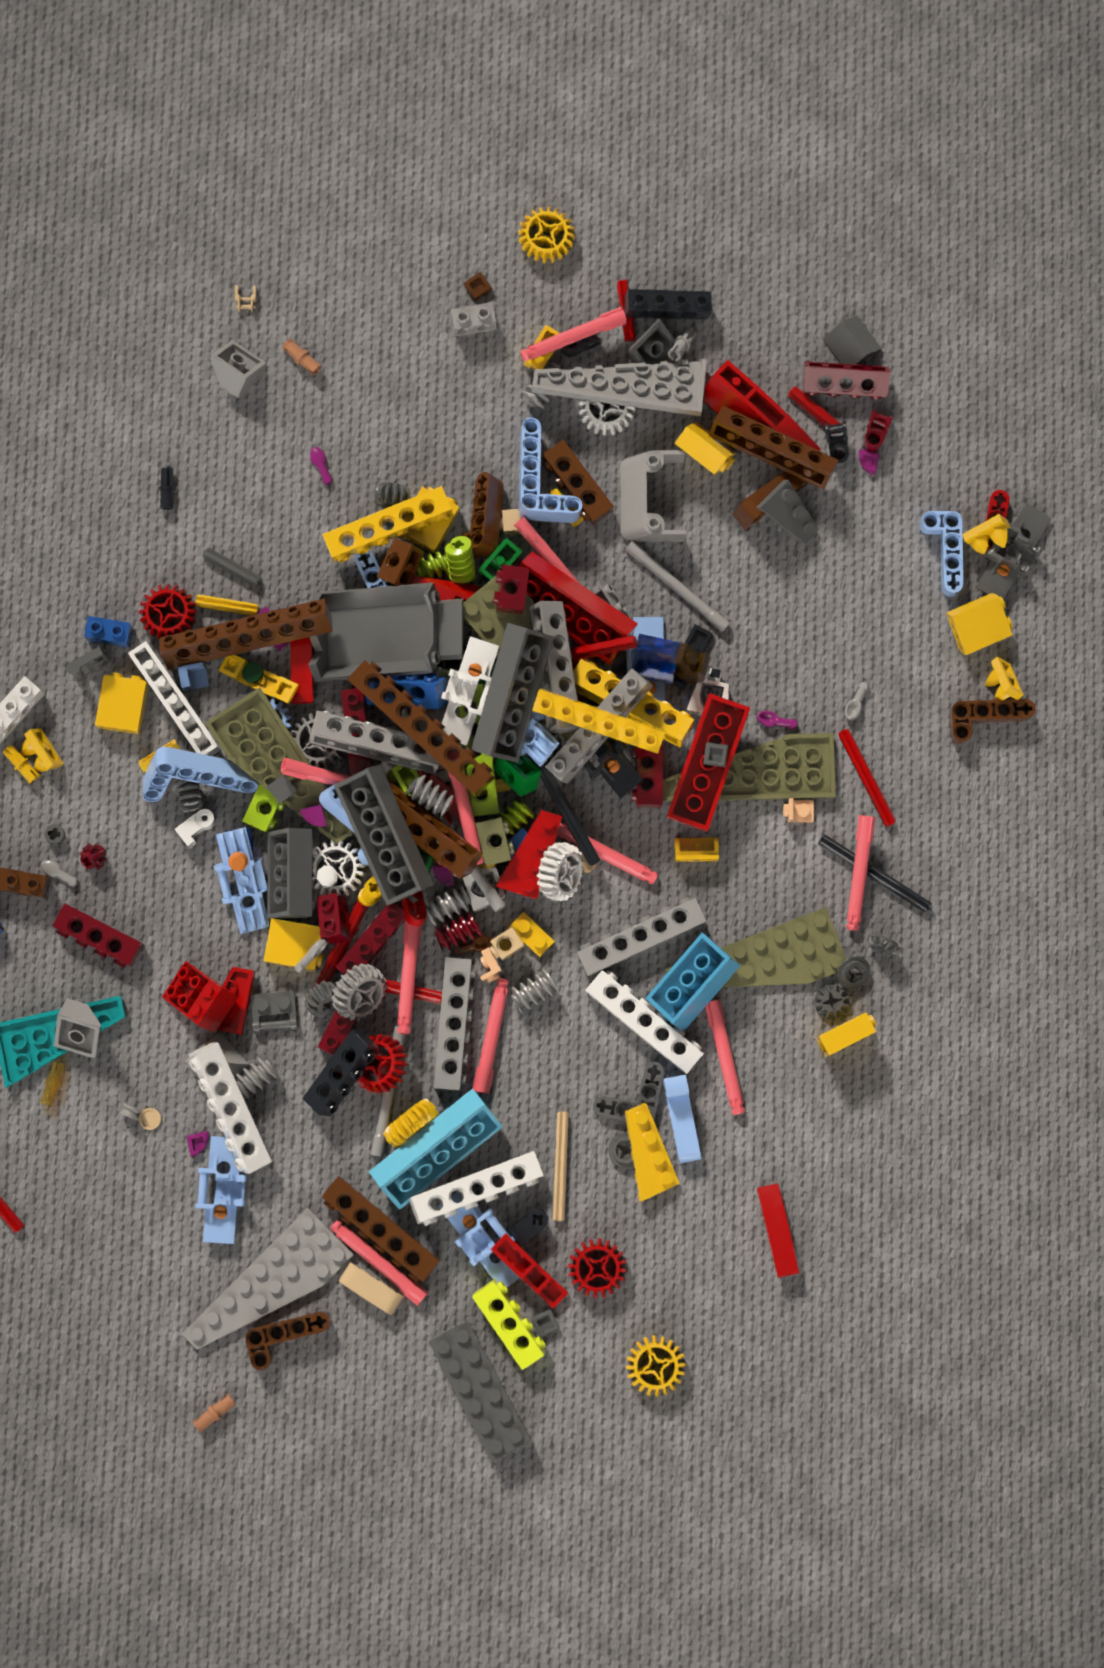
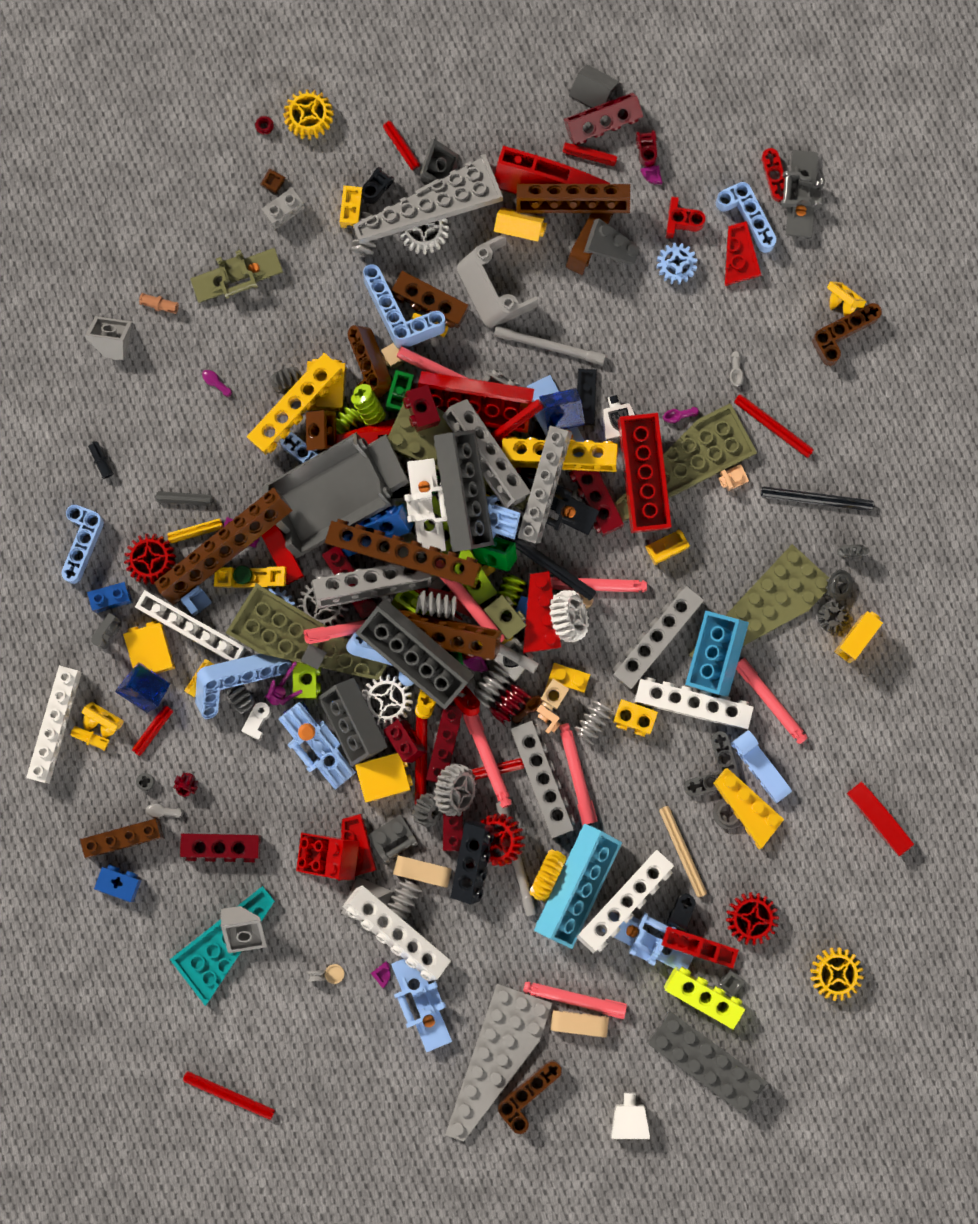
camera: 25 degrees left, 0 degrees up
(53, 1083) = (242, 983): clear yellow pin -> none
(87, 786) = (152, 730): none -> red axle
(97, 739) = (143, 688): none -> clear blue slope
(102, 564) = (78, 545): none -> light blue beam
(214, 1413) = (502, 1185): nougat pin -> none
(228, 809) = (277, 694): none -> magenta plant
(253, 298) = (96, 275): tan piece -> none
(287, 1058) = (422, 871): none -> tan beam
(314, 815) = (349, 665): magenta tile -> none
(314, 951) = (404, 770): light grey piece -> none
(327, 876) = (384, 709): white tile -> none
(332, 1200) = (614, 979): reddish brown brick -> none
(374, 1410) = (630, 1120): none -> white torso
(394, 358) = (235, 269): none -> olive piece
(496, 219) = (261, 120): none -> dark red plate
(583, 1002) = (636, 712): none -> yellow brick
(598, 720) = (545, 479): yellow brick -> none
(604, 323) = (389, 162): coral piece -> none
(667, 304) = (432, 124): black brick -> none
(682, 344) = (459, 150): light grey axle -> none
(691, 665) = (593, 401): dark brown brick -> none
(715, 754) = (648, 463): dark grey tile -> none
(837, 439) = (620, 168): black piece -> none
(856, 565) = (669, 264): none -> light blue gear
(864, 837) = (796, 472): coral piece -> none
(878, 527) = (686, 215): none -> red tile
(918, 588) = (741, 256): none -> red wing
(979, 623) = (803, 261): yellow brick -> none
(992, 529) = (778, 181): yellow tile -> none

